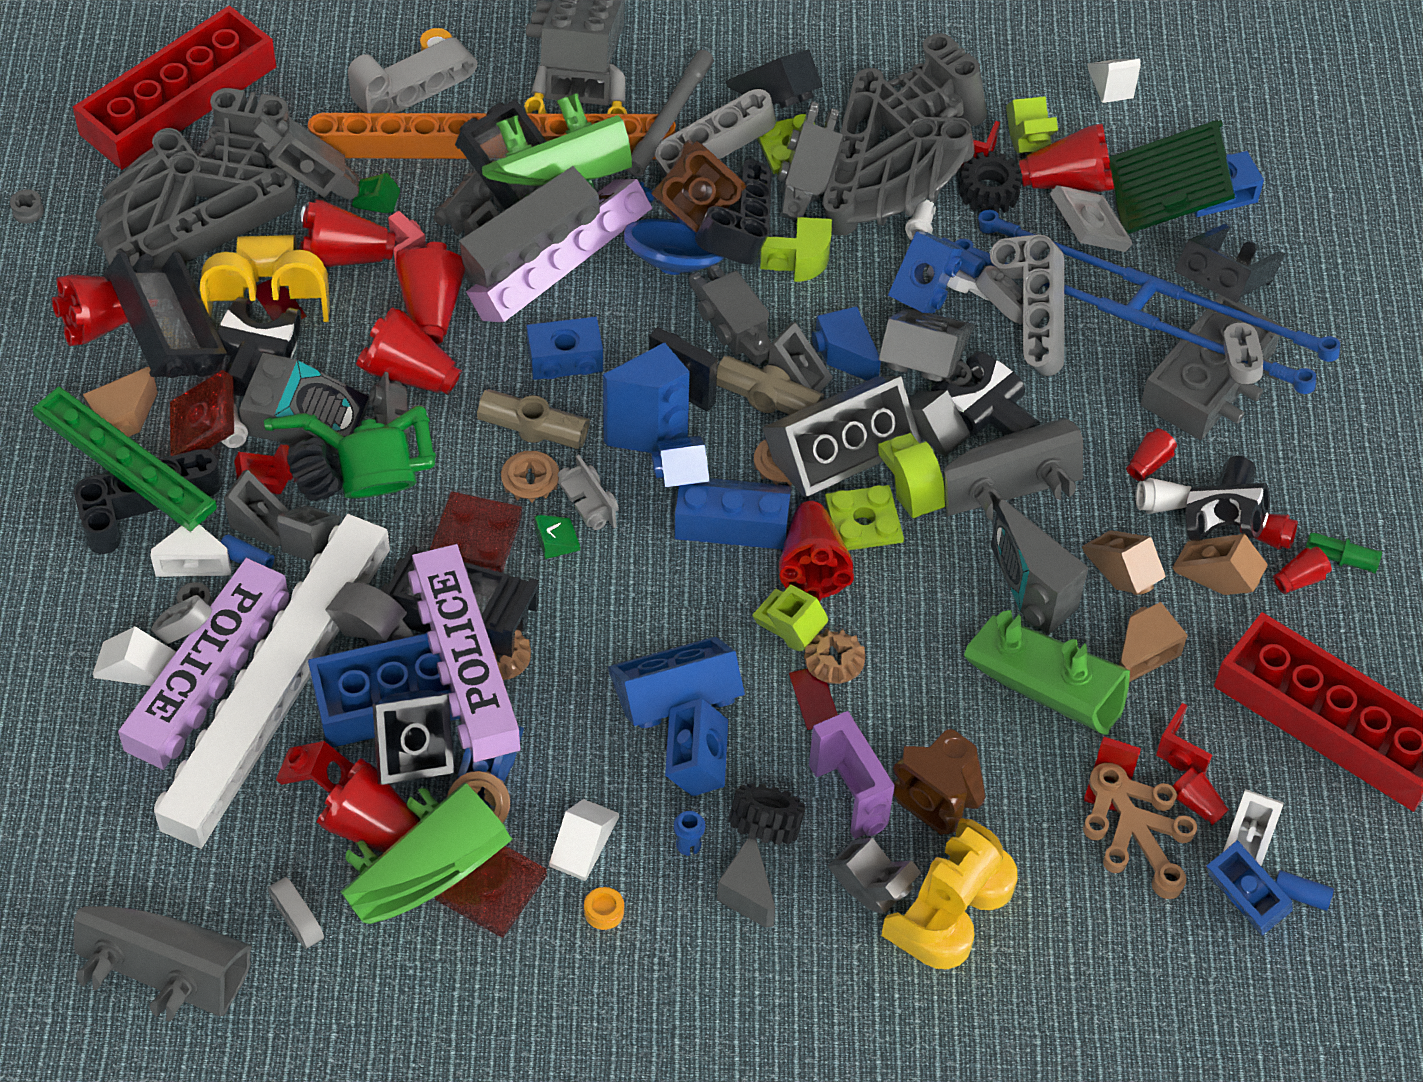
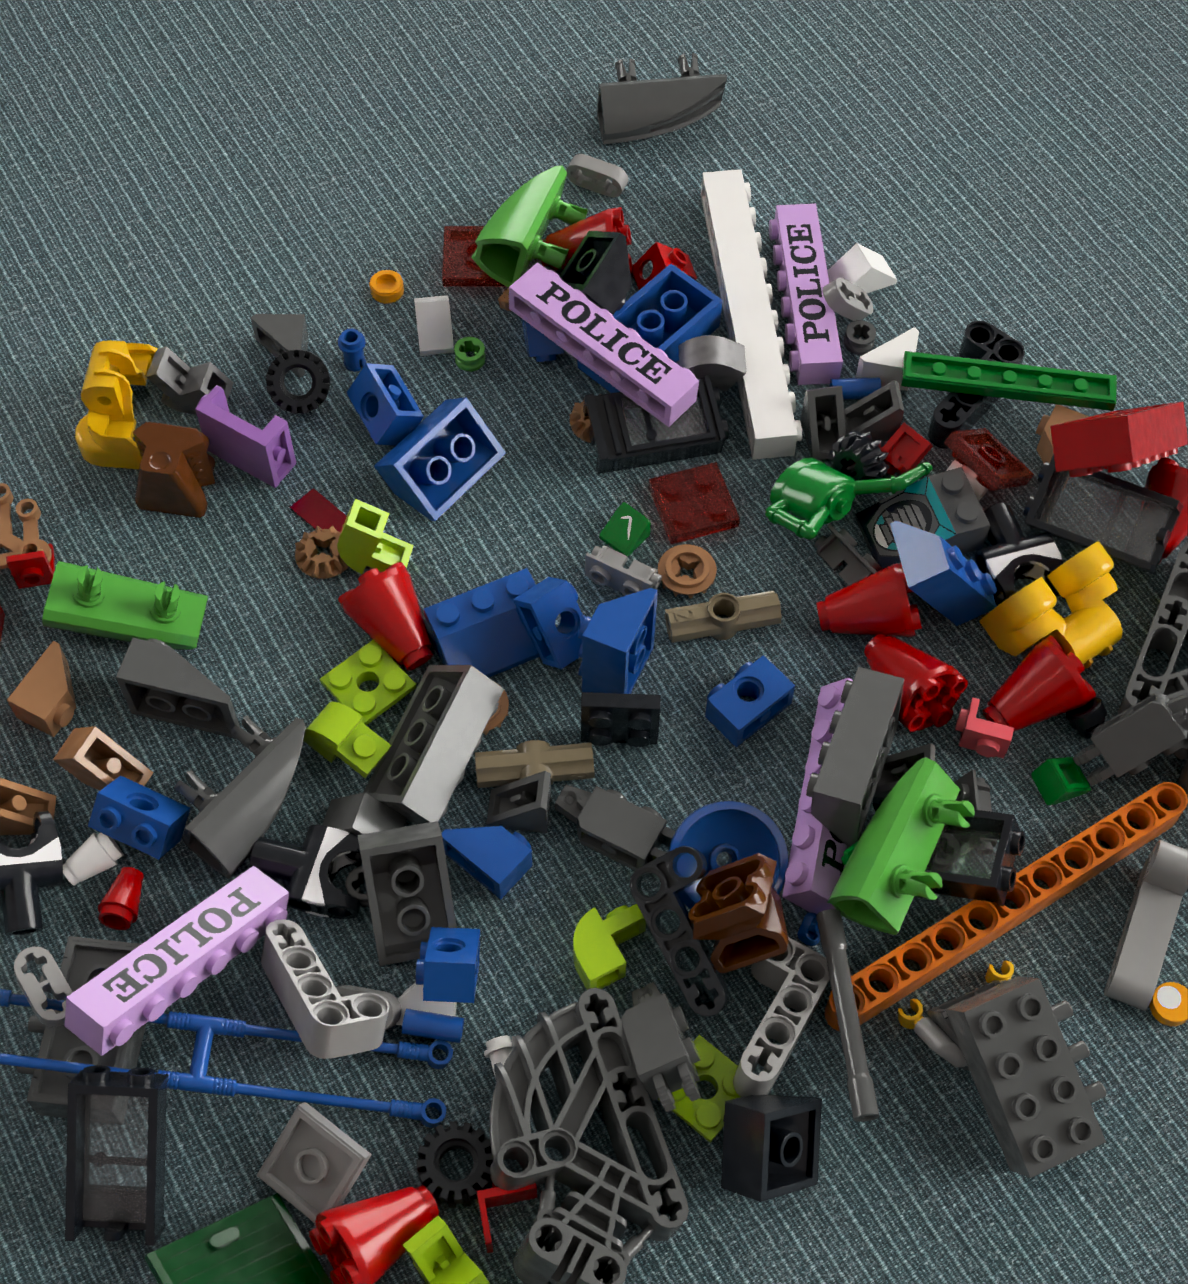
camera: 150 degrees right, 5 degrees up
(115, 305) = (1119, 439): none -> red brick
(342, 323) = (943, 574): none -> blue slope
(570, 770) = (469, 363): none -> bright green bush
(1095, 484) = (139, 817): none -> blue brick
(1129, 348) = (174, 961): none -> lavender brick

